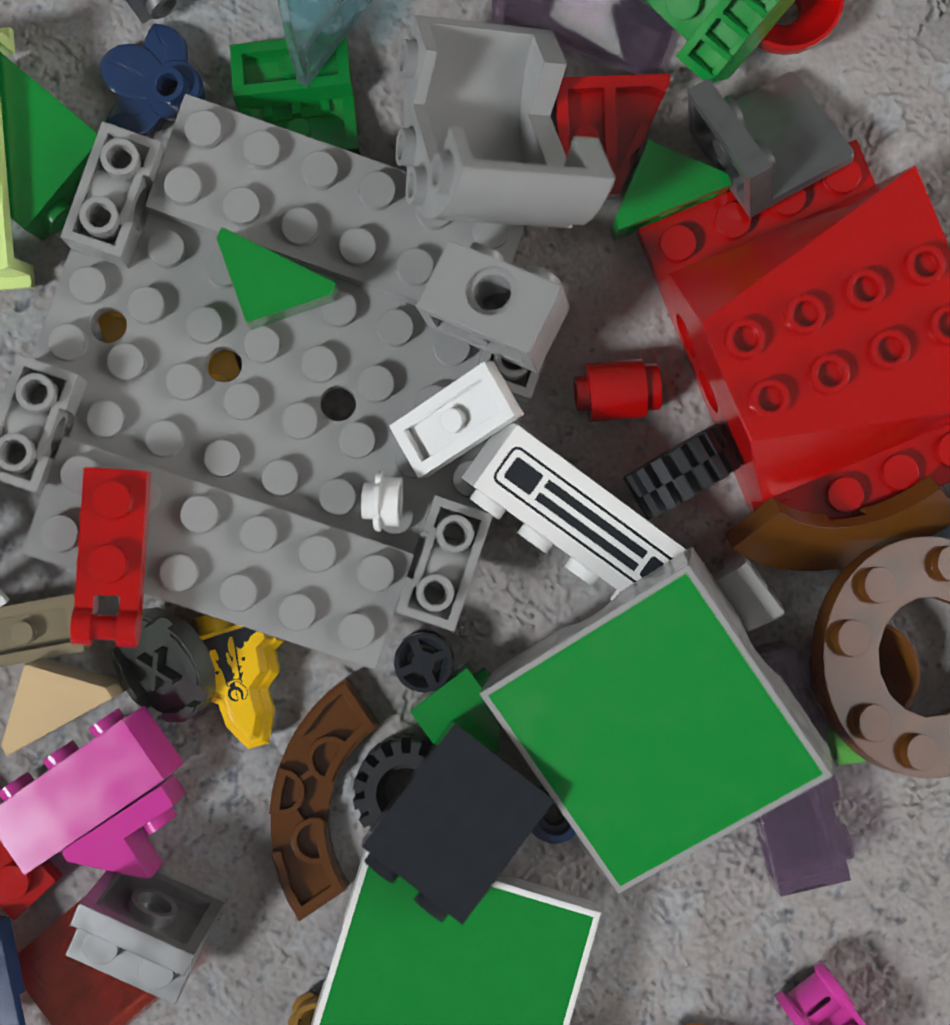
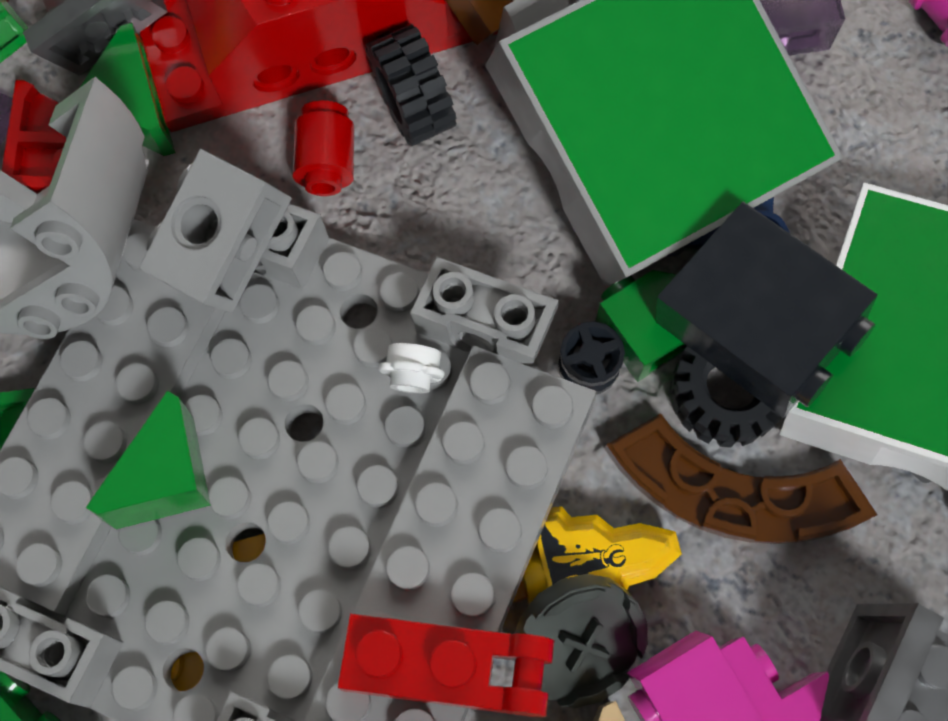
camera: 80 degrees left, 15 degrees down
(456, 419) = (332, 286): white plate -> none
(566, 510) = (438, 192): white brick -> none

